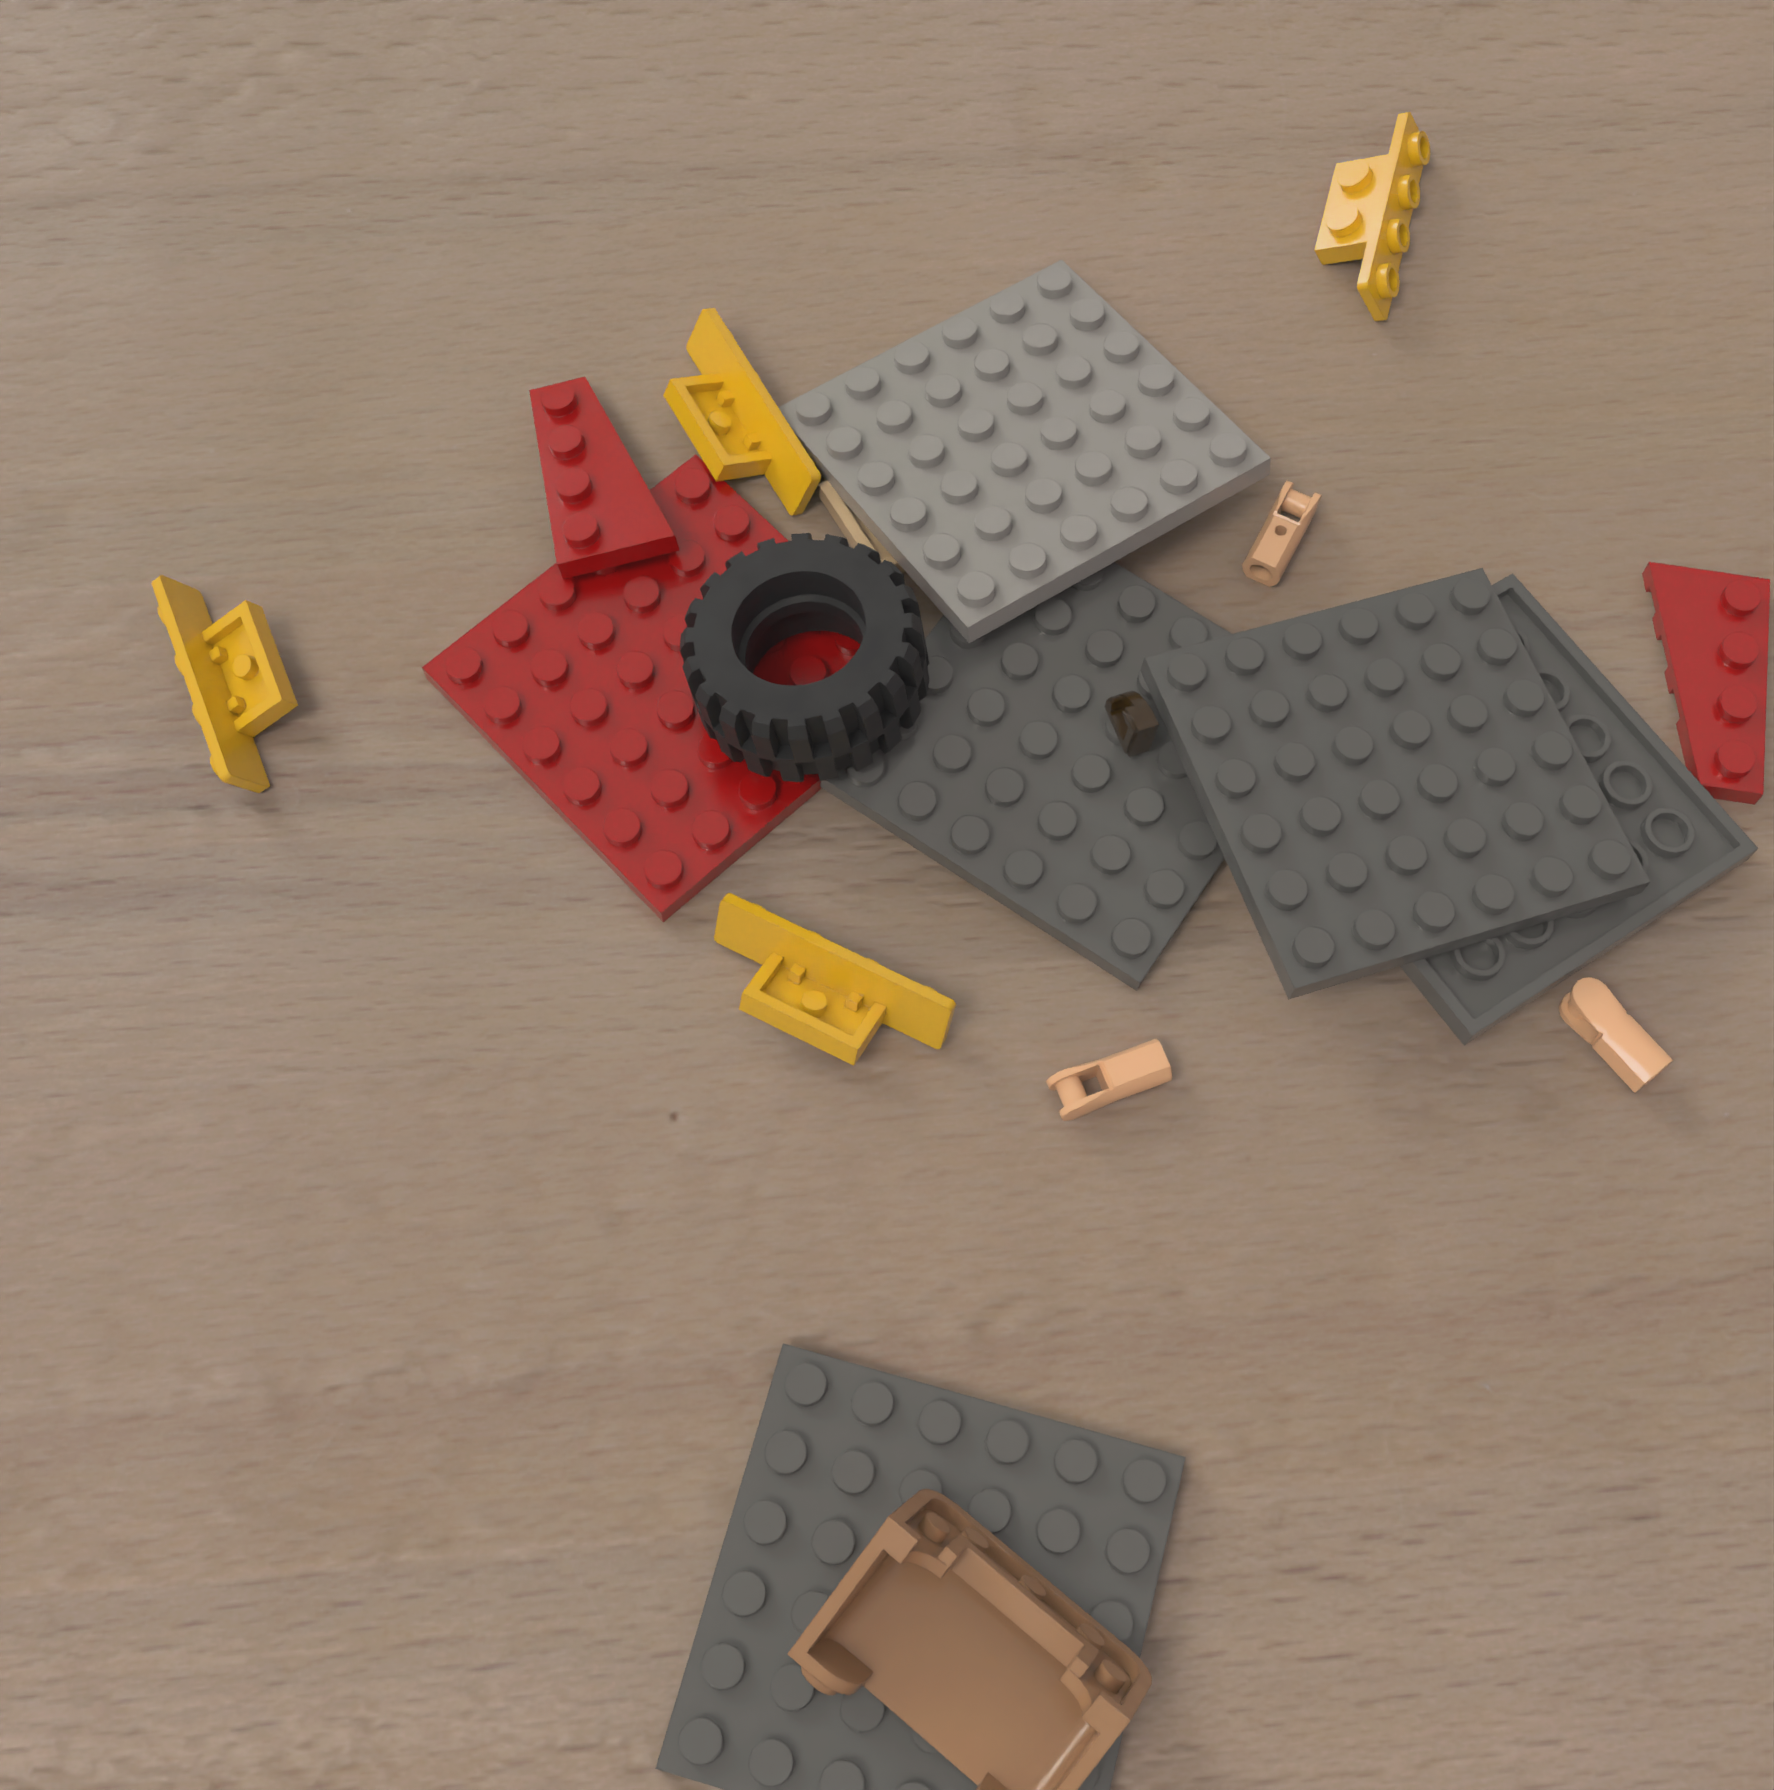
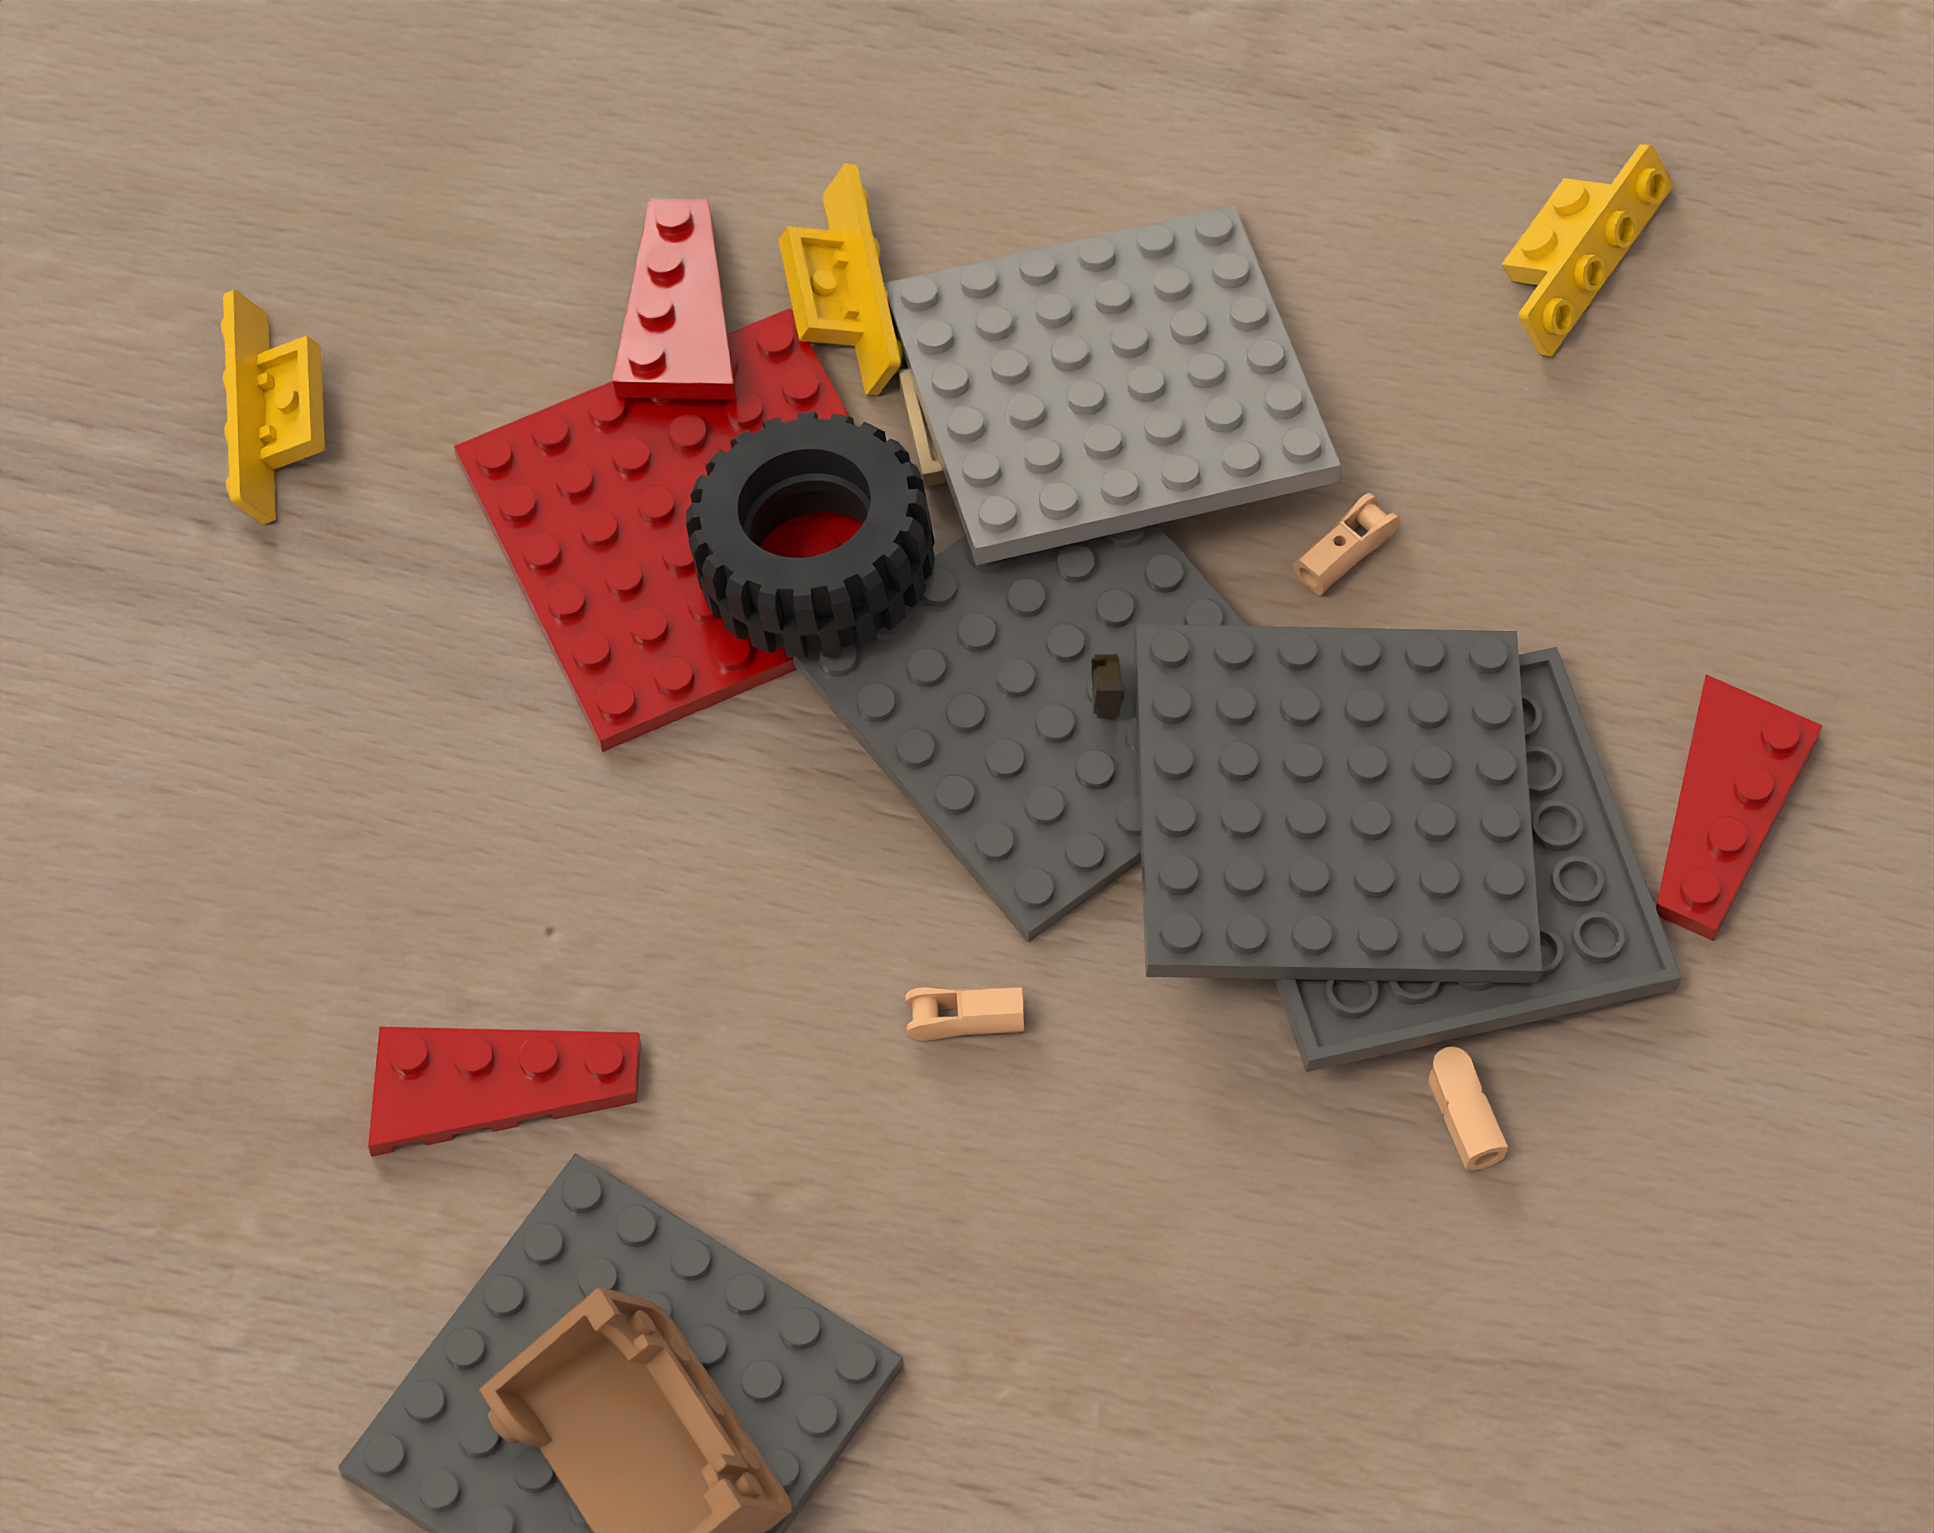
camera: 20 degrees right, 5 degrees down
(654, 1294) = (476, 1079): none -> red wing
(824, 989) = (726, 852): yellow bracket -> none

